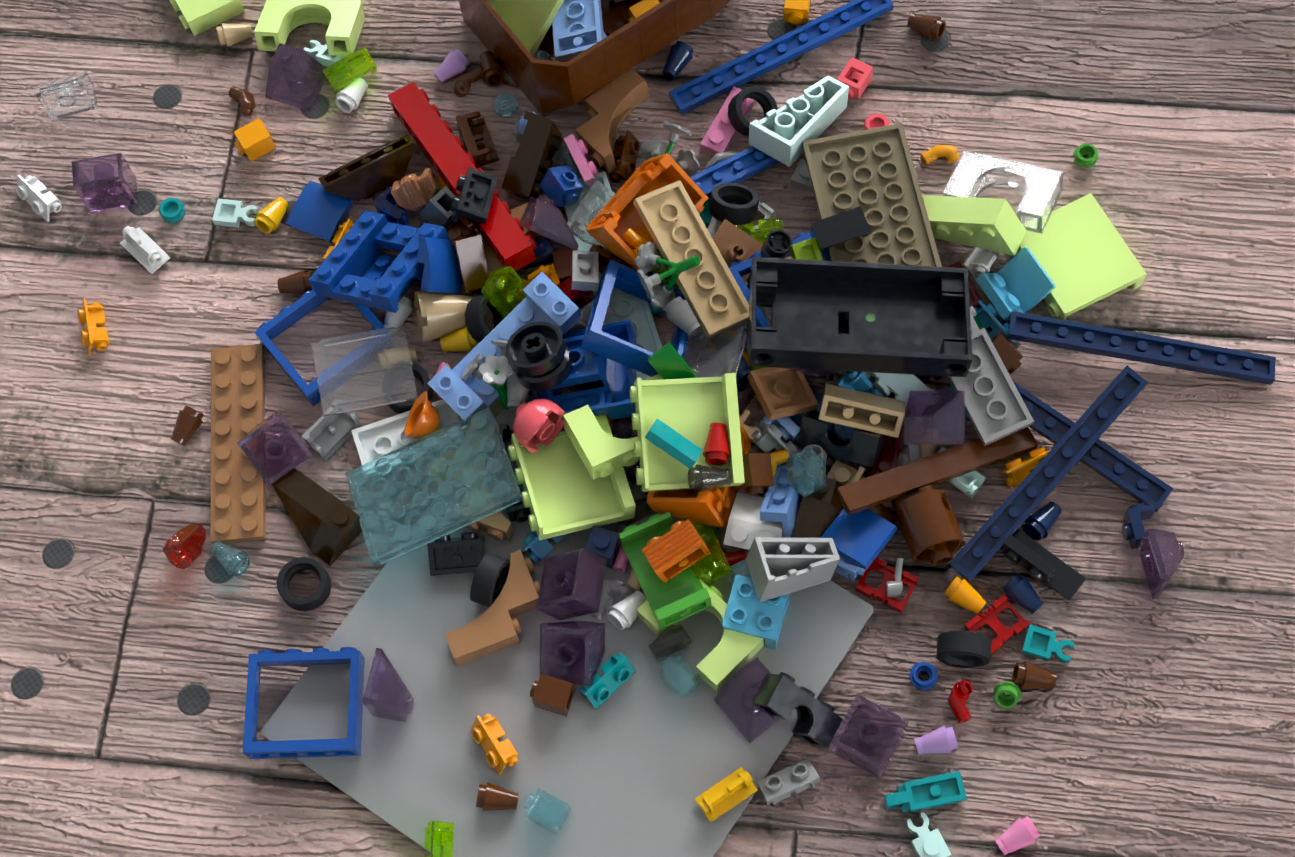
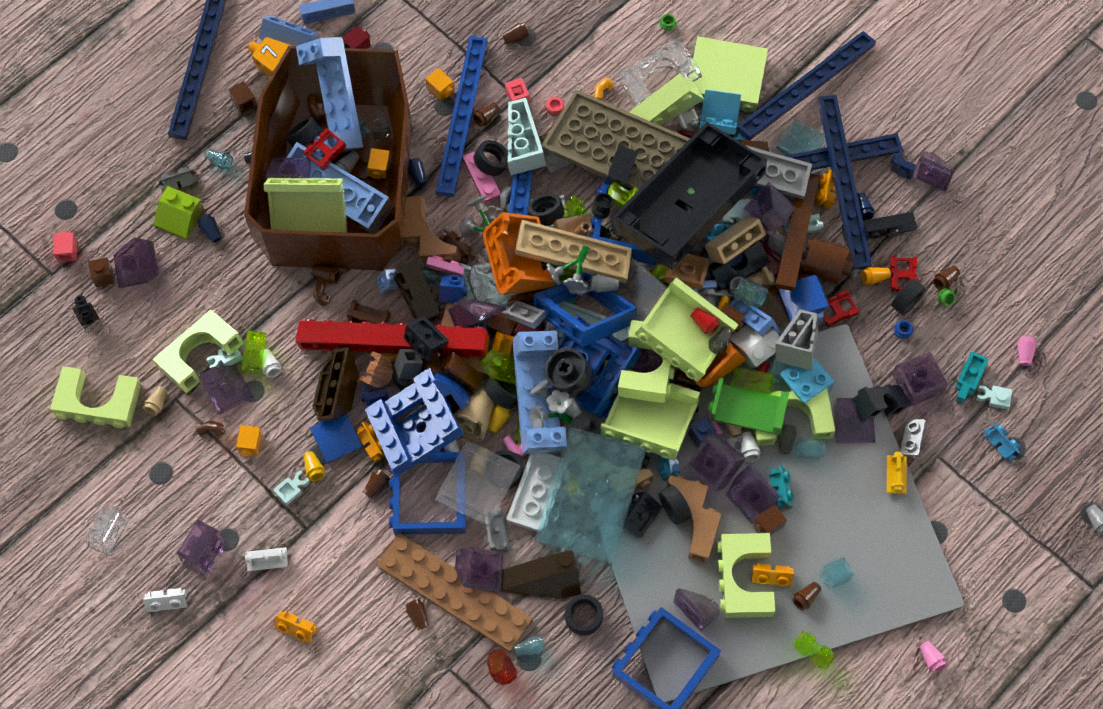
camera: 60 degrees left, 0 degrees up
(172, 210) = (251, 524): teal tile -> none
(422, 418) = (537, 471): orange hat -> none
(451, 66) = (303, 293): lavender cone -> none
(485, 680) = (736, 601): none -> yellowish green arch
(505, 99) = (358, 279): clear light blue plate -> none
(537, 423) = (606, 406): coral cylinder -> none
(634, 240) = (541, 272): light orange arm -> none
(670, 364) = (635, 309): green tile -> none
(673, 443) = (690, 340): teal tile -> none
(675, 550) = (745, 391): orange brick -> none
(803, 70) = (485, 114): none -> reddish brown cone
(895, 588) = (844, 302): light grey hand -> none
(936, 742) = (946, 348): lavender cone -> none
(958, 699) = (929, 323): red arm -> none
(1022, 593) = (896, 247): dark blue cone -> none
(1042, 644) = (933, 259): teal plate -> none
(1065, 391) = (800, 138): none -> clear light blue plate

